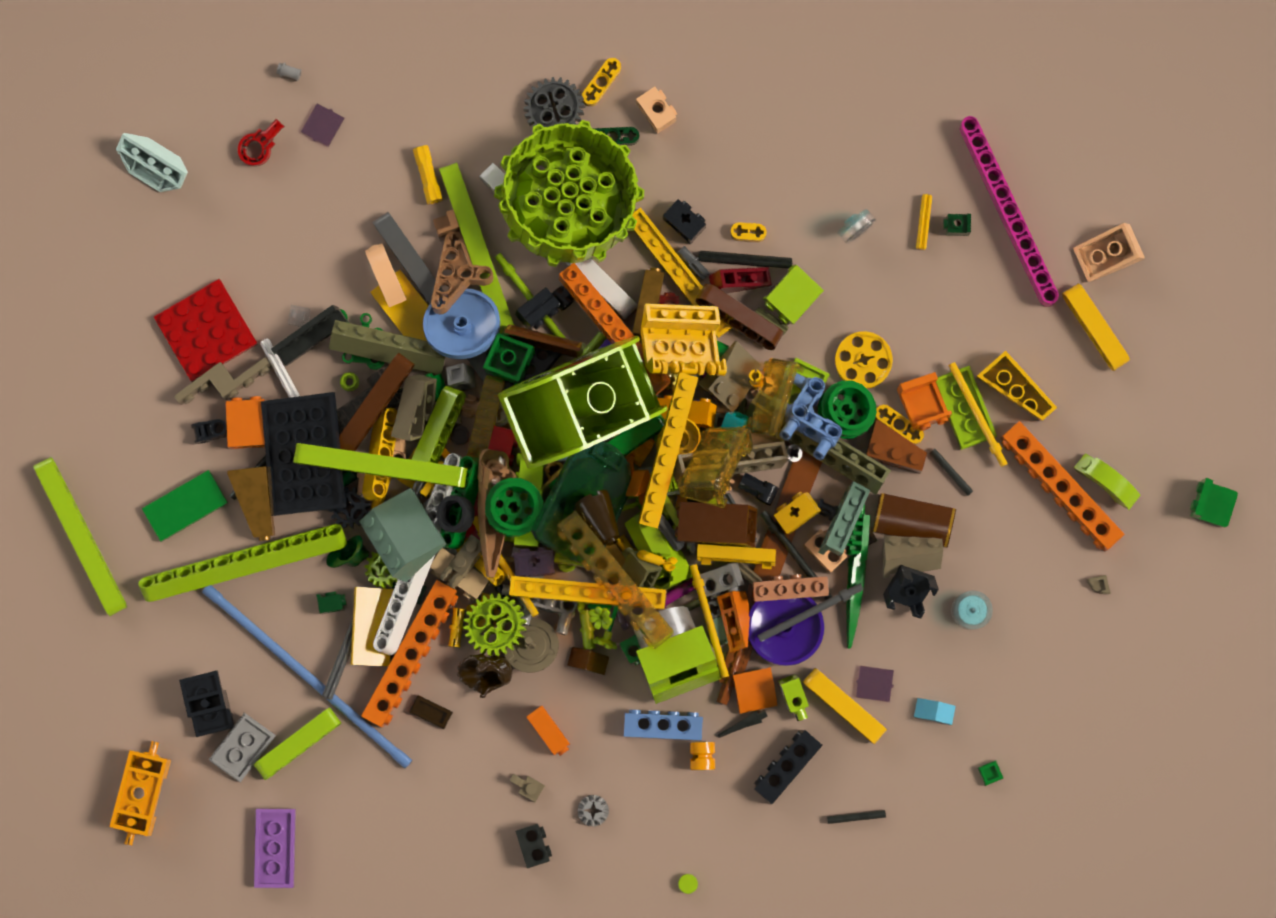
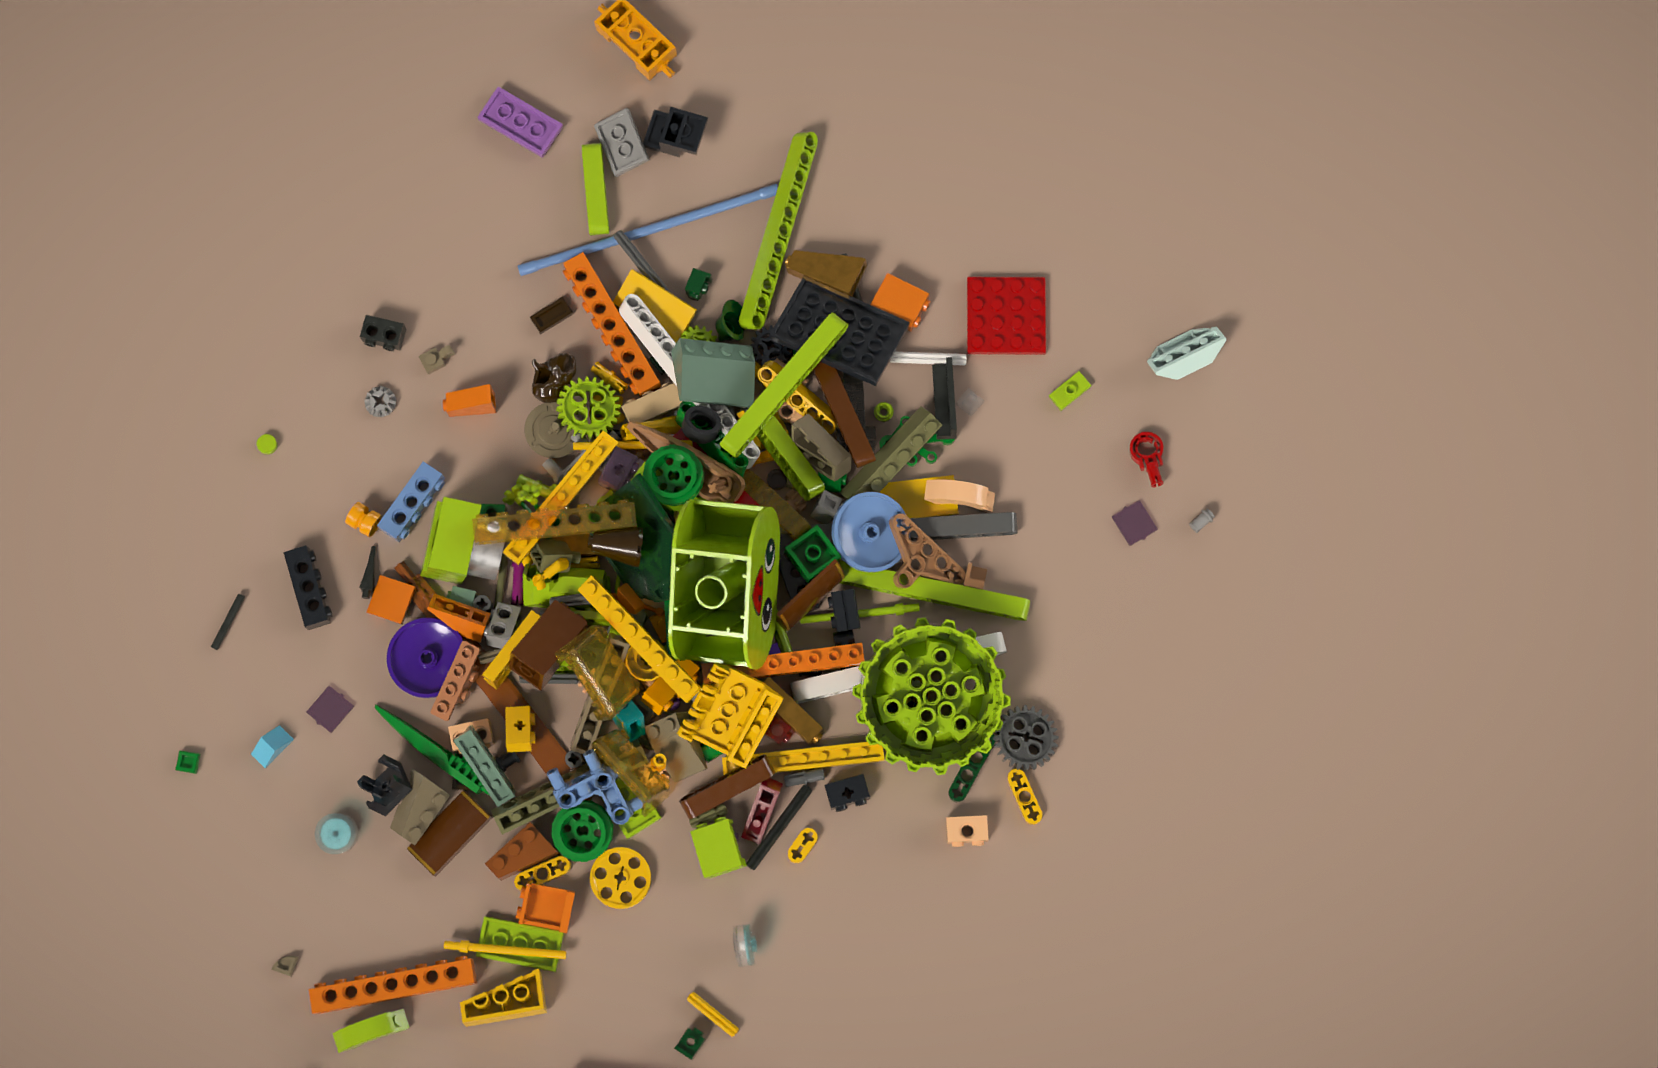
camera: 125 degrees right, 5 degrees down
(80, 536) = (887, 110): lime beam -> none
(185, 505) = (860, 212): green tile -> none
(207, 432) = (913, 265): black piece -> none
(223, 381) = (949, 303): dark tan bracket -> none
(240, 240) = (1070, 391): none -> lime plate
(426, 170) = (1016, 583): yellow axle -> none
(463, 561) = (659, 411): dark tan hinge -> none
(588, 660) = (508, 472): reddish brown slope -> none
(698, 584) = (510, 603): yellow bar -> none
(763, 491) = (560, 712): black piece -> none
(774, 528) = (518, 701): pearl dark grey bar -> none
(790, 689) = (364, 629): lime torso -> none
(843, 595) = (421, 725): dark grey bar -> none
(844, 706) = (327, 669): yellow beam -> none
(951, 472) = (470, 894): pearl dark grey bar -> none

